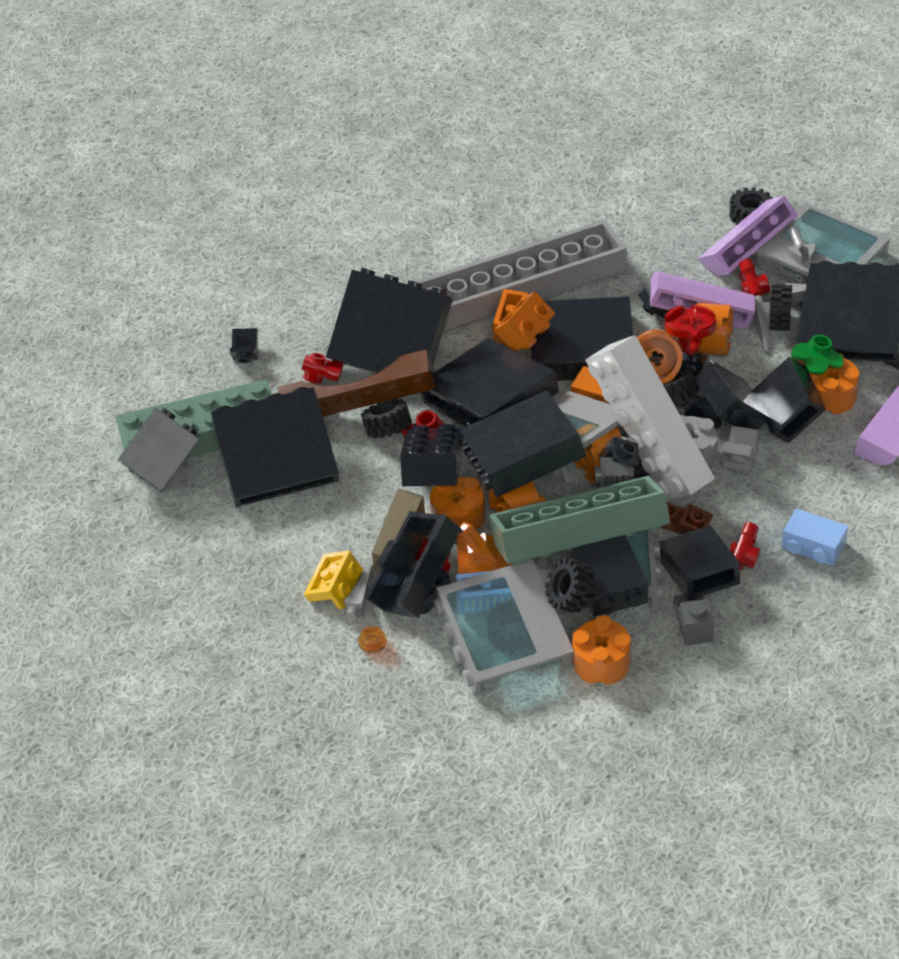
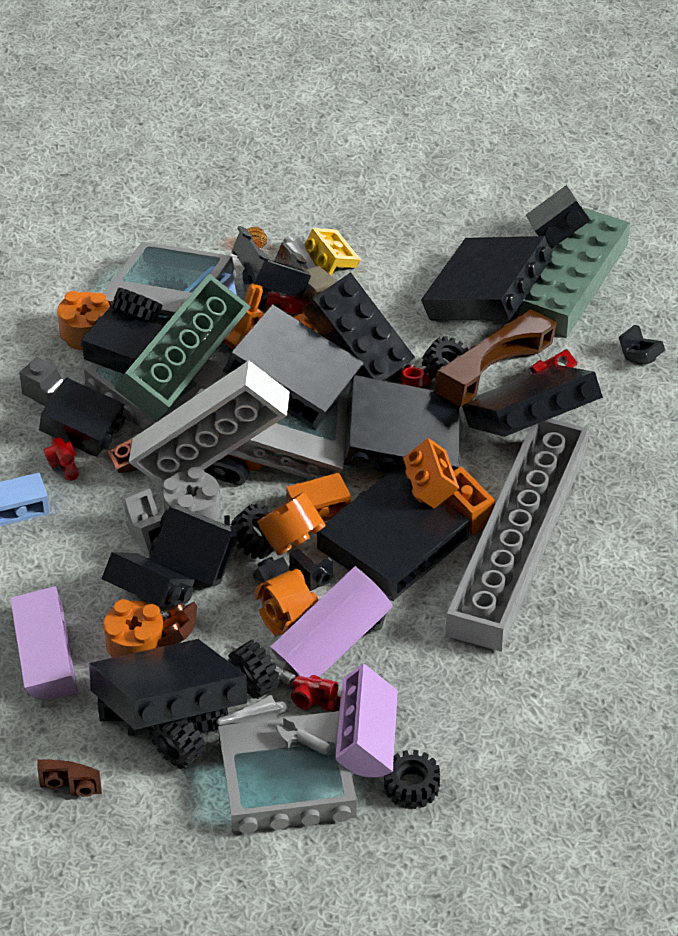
camera: 130 degrees right, 0 degrees up
(690, 326) = (285, 549): red tile -> none
(818, 354) = (156, 614): green plate -> none

